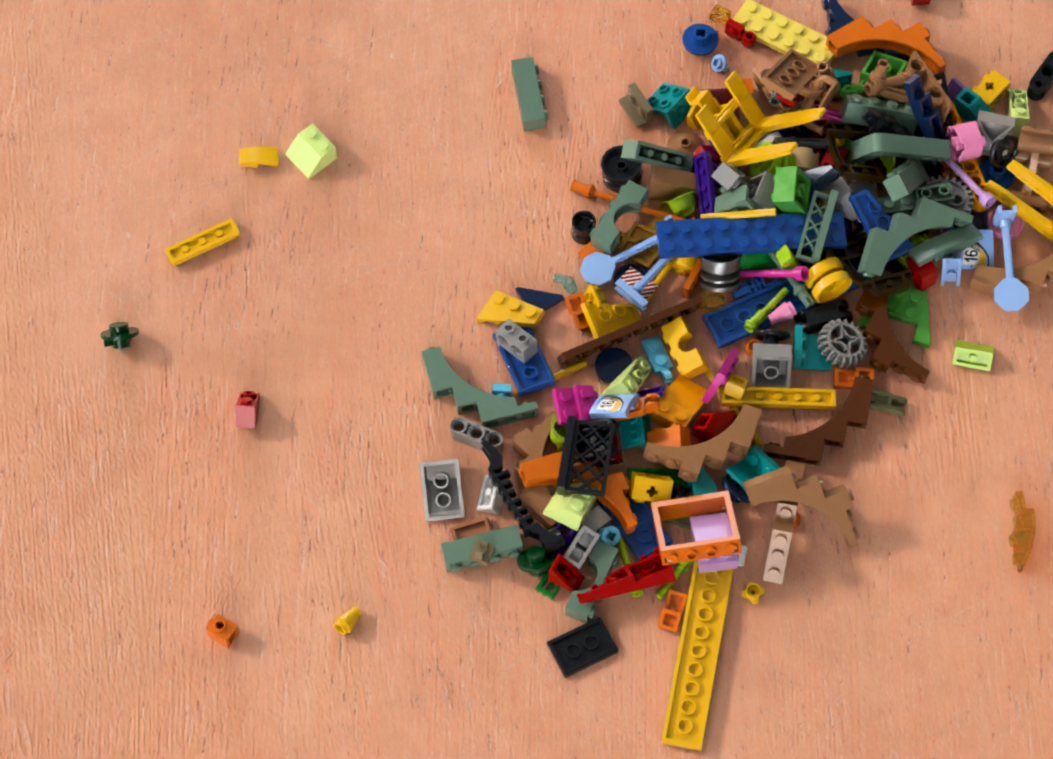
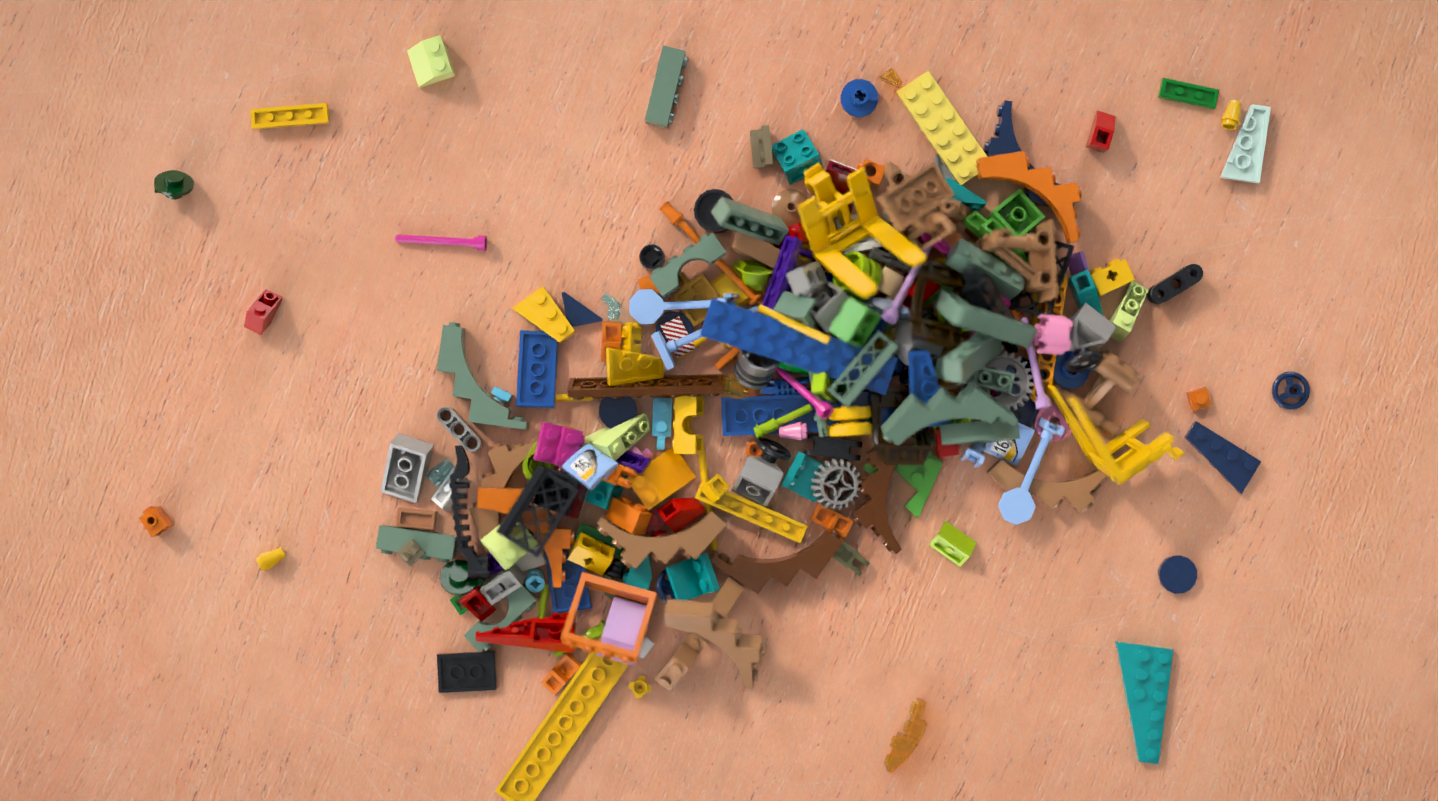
camera: 25 degrees right, 25 degrees up
(258, 155) = (378, 44): yellow slope -> none
(420, 278) = (479, 242): none -> dark pink piece
(474, 481) = (439, 472): none -> clear light blue cone
(516, 341) = (534, 353): light grey brick -> none
(719, 64) = (865, 132): light blue plate -> none
(722, 375) = (714, 465): dark pink wing -> none
(736, 31) = (897, 103): red plate -> none
(818, 174) = (891, 313): none -> lavender piece
(922, 107) = (1026, 290): dark blue slope -> none

